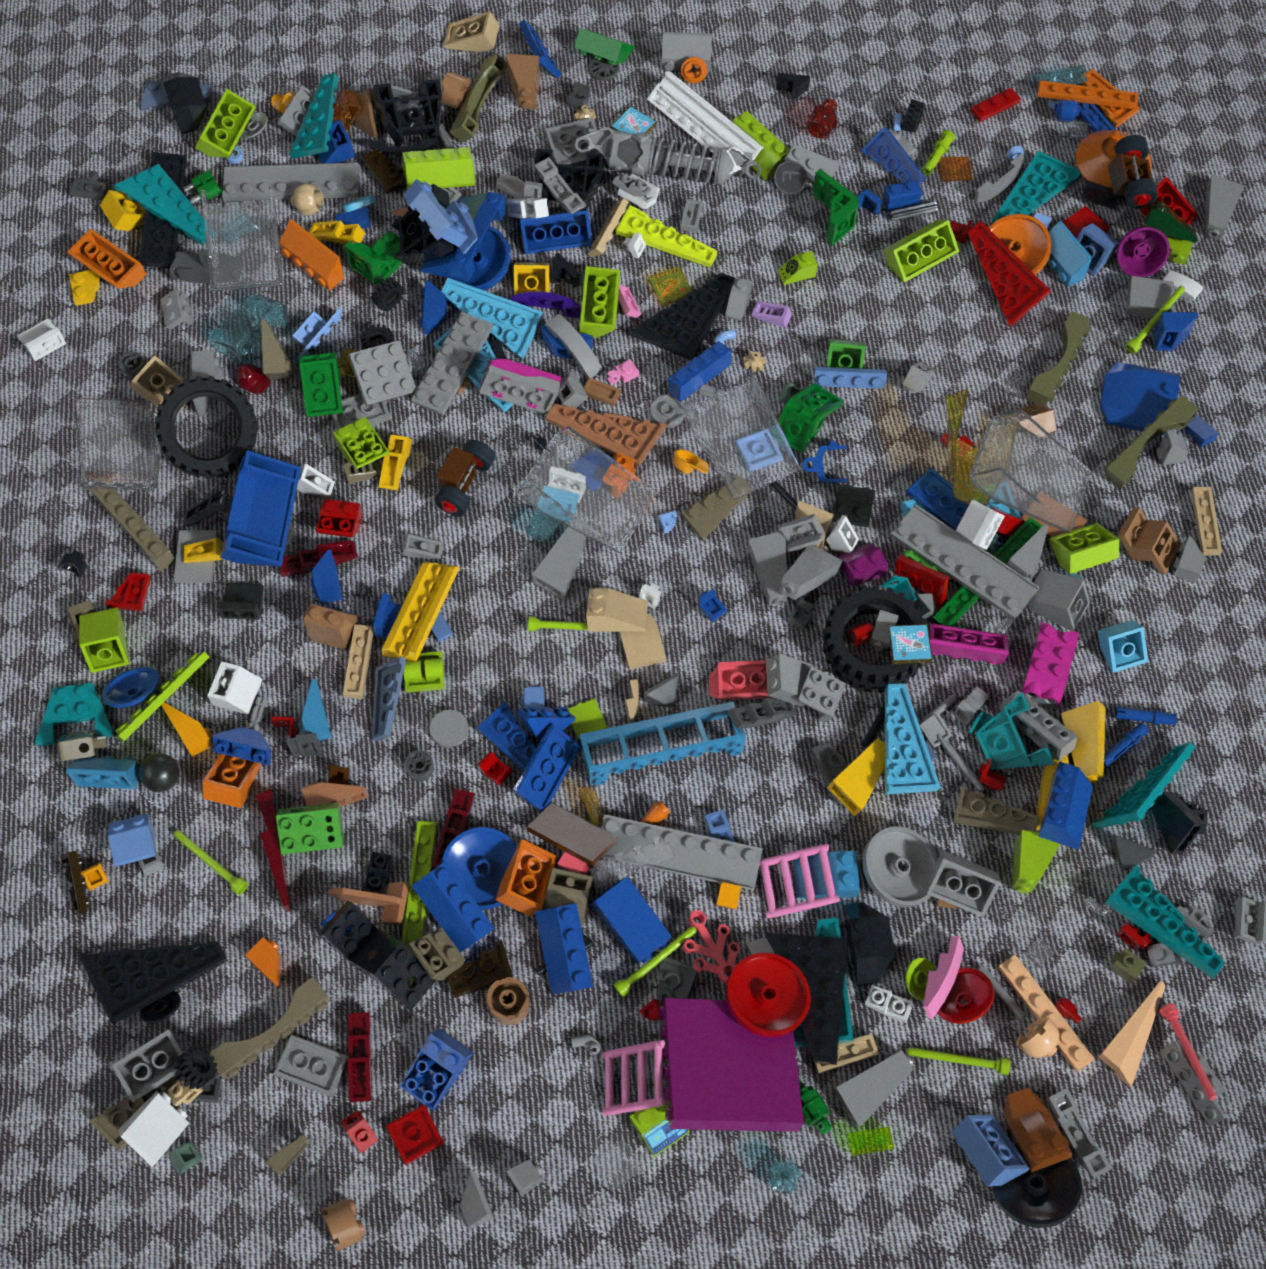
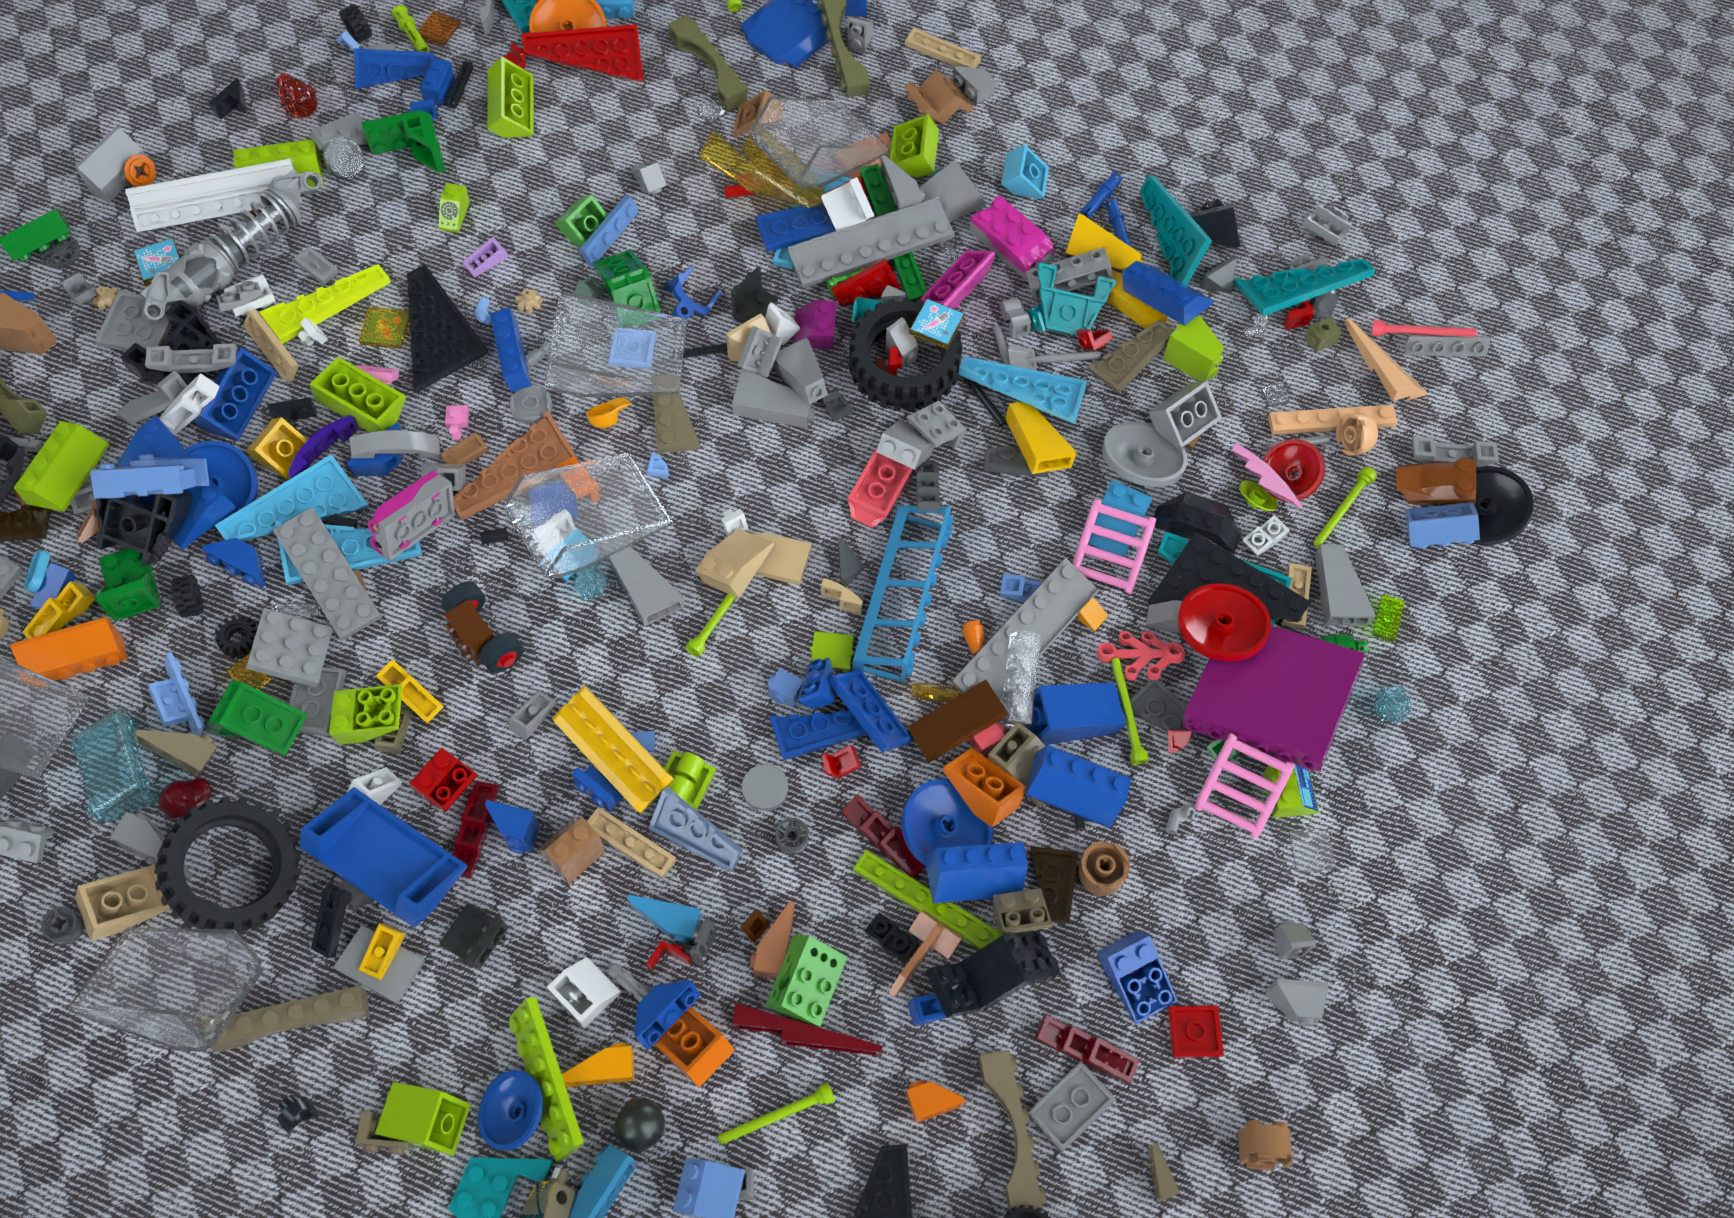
camera: 65 degrees left, 0 degrees up
(132, 593) = (379, 1061): red wing -> none
(359, 1131) = (1170, 1086): red bracket -> none
(711, 605) = (780, 475): blue bracket -> none
(739, 299) = (449, 274): light grey slope -> none
(1068, 1010) = (1339, 400): red cylinder -> none

